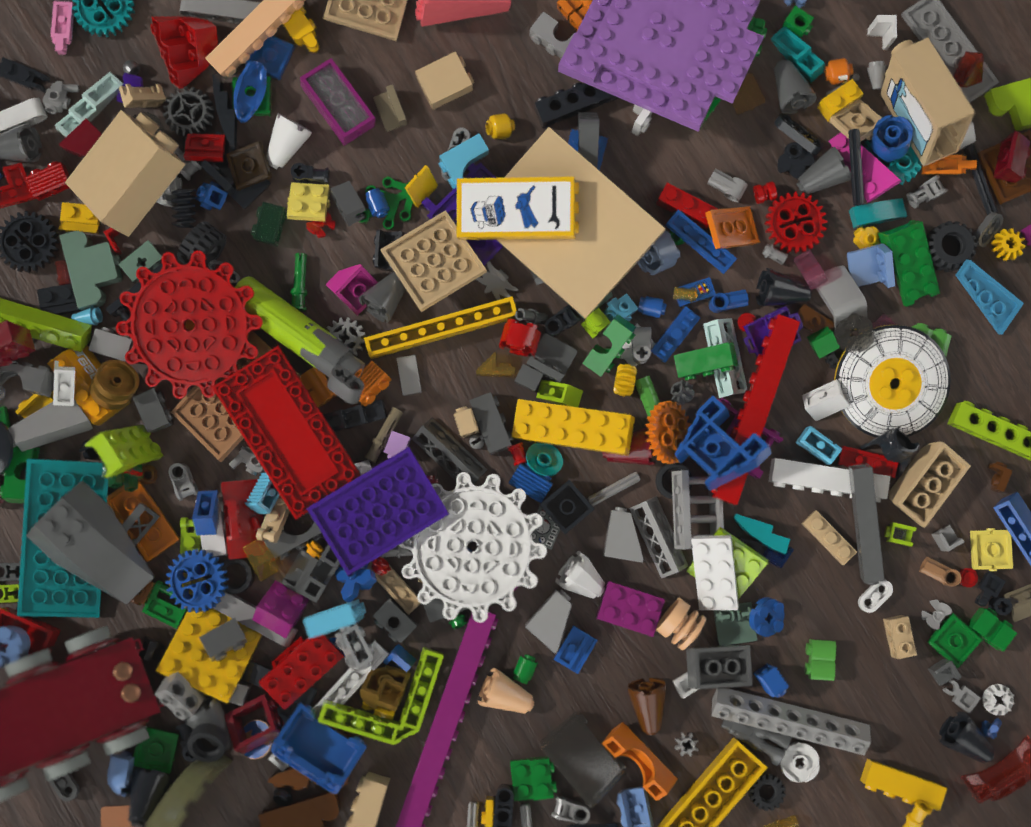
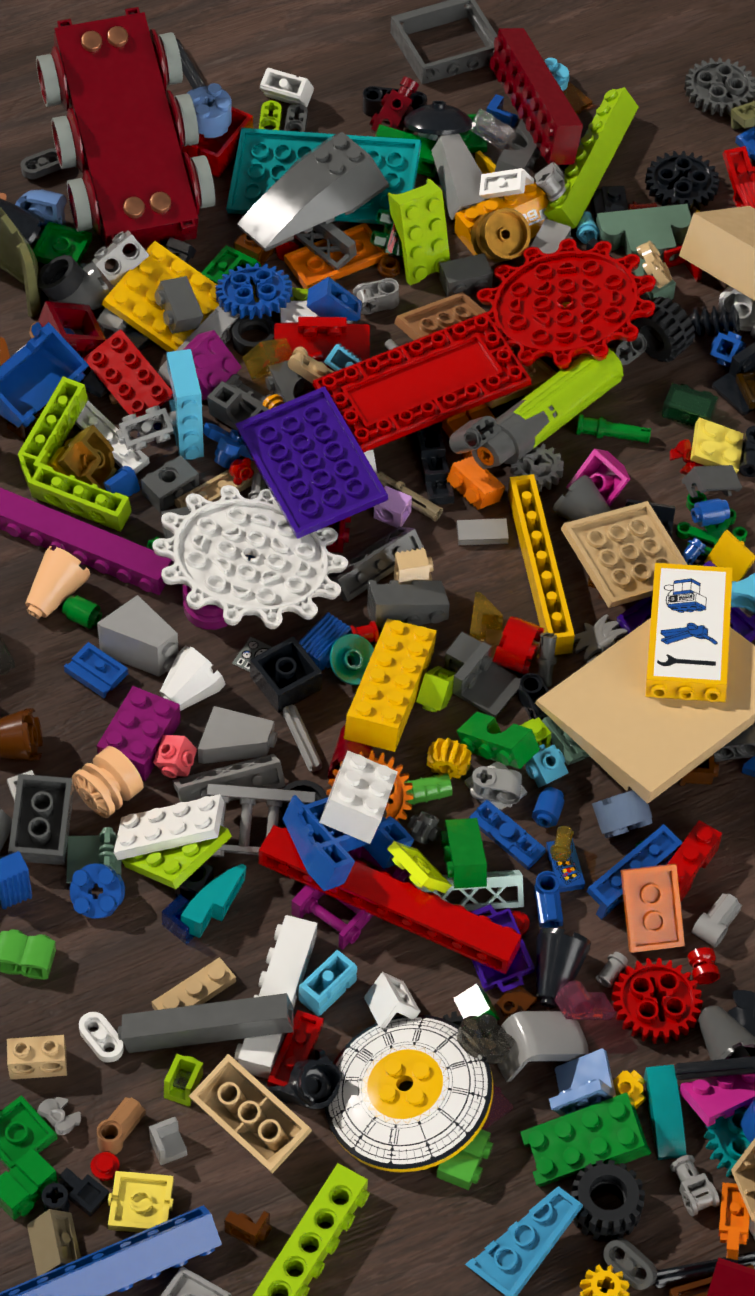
camera: 95 degrees right, 30 degrees down
(53, 347) = (551, 181): none -> light grey piece
(140, 254) = (654, 264): none -> tan plate
(411, 214) = (693, 551): none -> blue pin
(648, 578) = (175, 756): none -> coral brick
(697, 436) = (358, 797): none -> white brick
(735, 389) = (421, 870): none -> neon yellow plate

